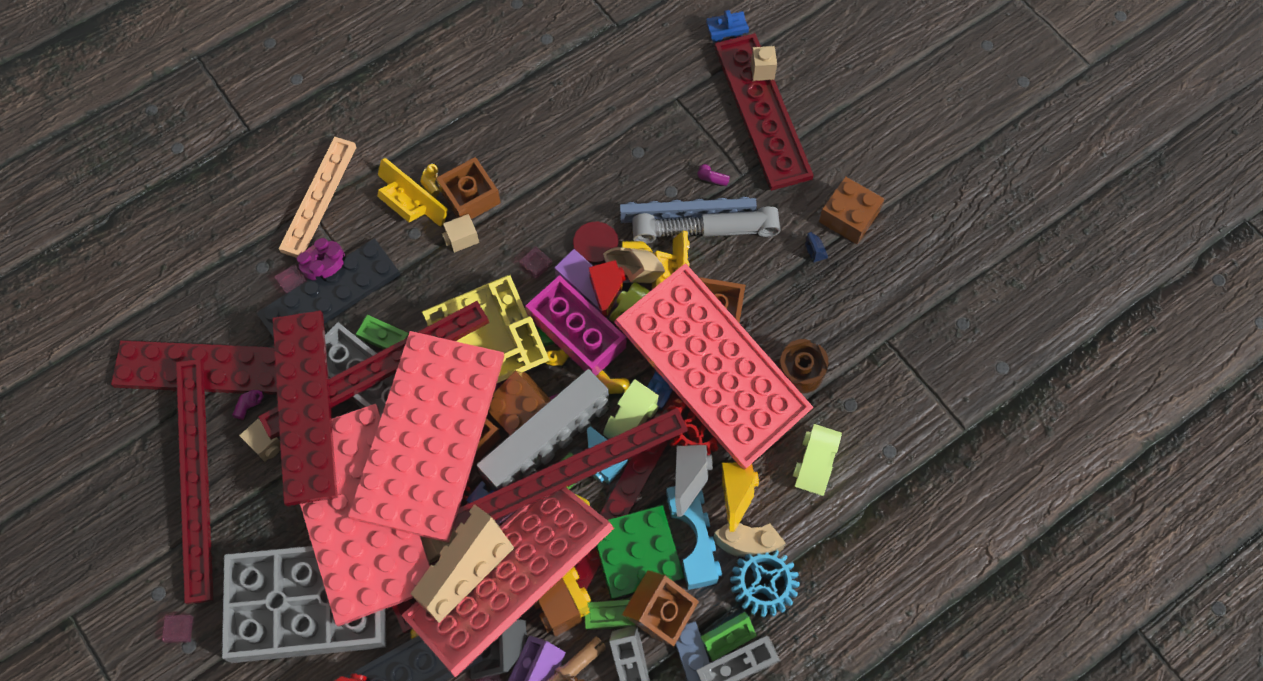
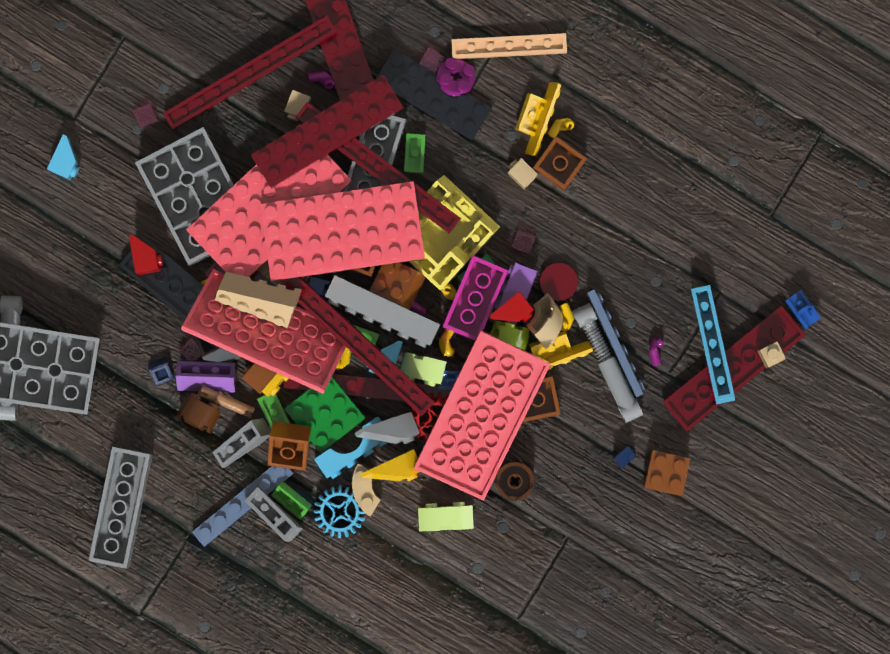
camera: 70 degrees right, 20 degrees up
(730, 111) = (713, 344): none -> medium azure brick

